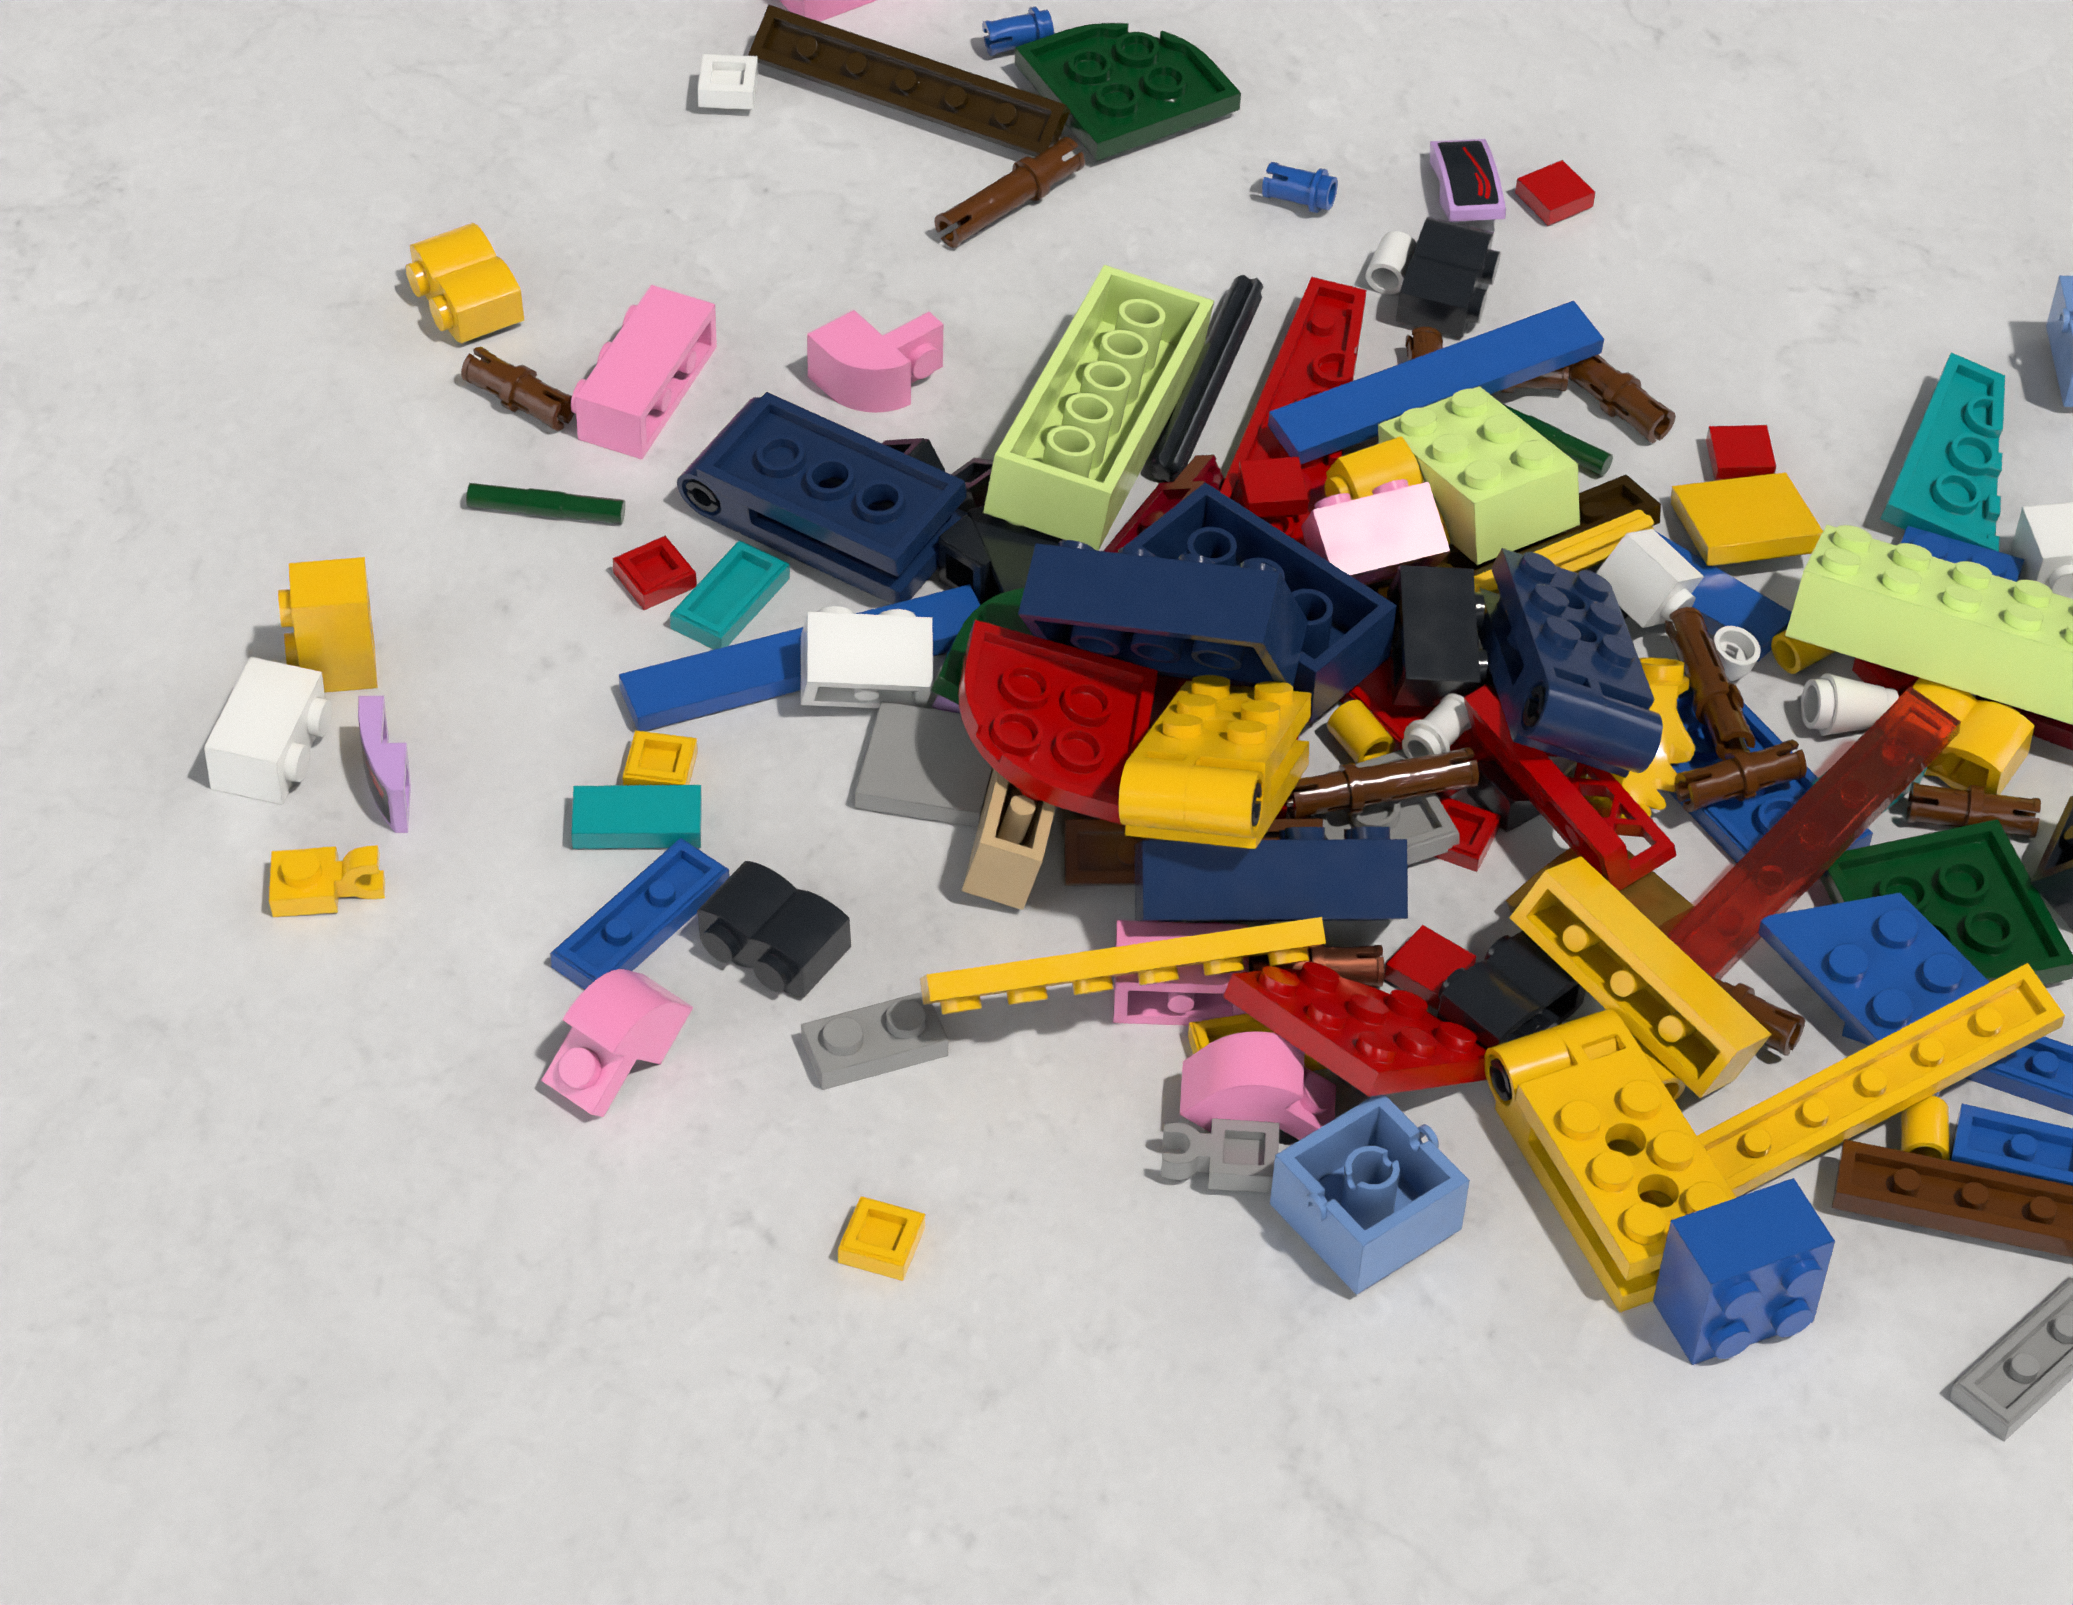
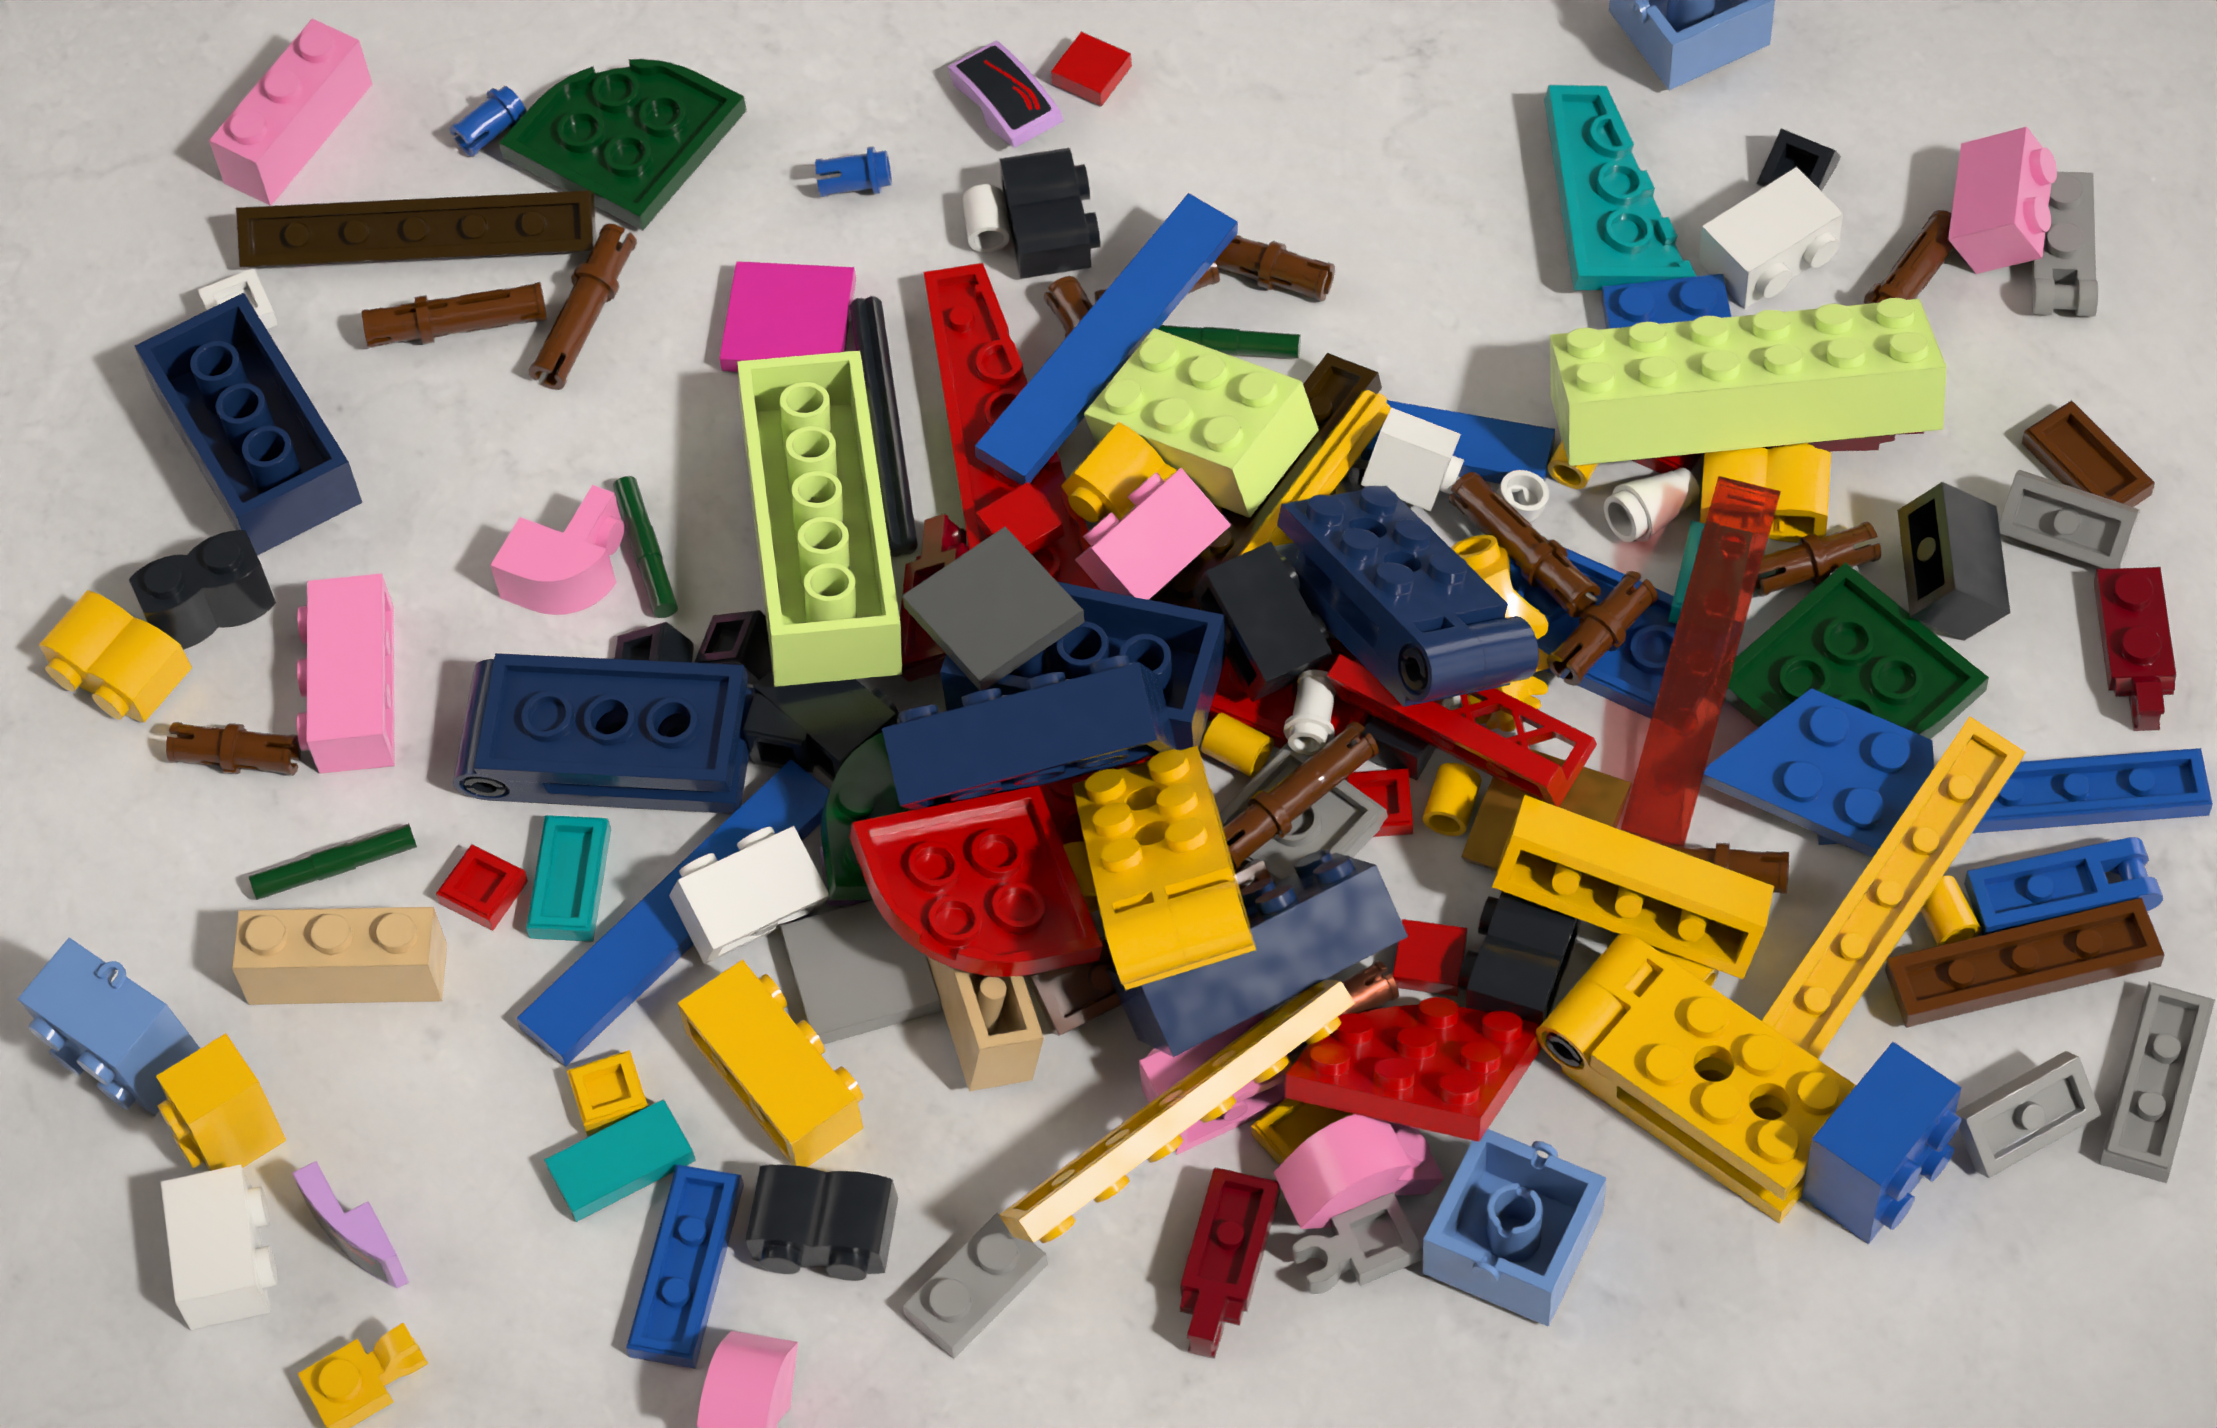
camera: 20 degrees left, 10 degrees up
(274, 515) = (105, 1026): none -> medium blue brick
(504, 565) = (340, 955): none -> tan brick
(567, 262) = (206, 589): none -> black brick
(678, 161) = (248, 424): none -> dark blue brick
(809, 796) = (773, 1064): none -> yellow brick
(887, 153) = (452, 315): none -> reddish brown pin
(950, 385) = (645, 547): none -> dark green piece
(1102, 1110) = (1226, 1255): none -> dark red hinge
(1185, 258) = (786, 311): none -> dark pink tile
(1199, 511) = (993, 609): none -> dark grey tile
(1525, 854) = (1452, 799): none -> yellow hinge
(1740, 451) = (1412, 276): red tile -> none
(1746, 519) = (1458, 347): yellow tile -> none
(1900, 1319) = (2027, 1114): none -> light grey plate

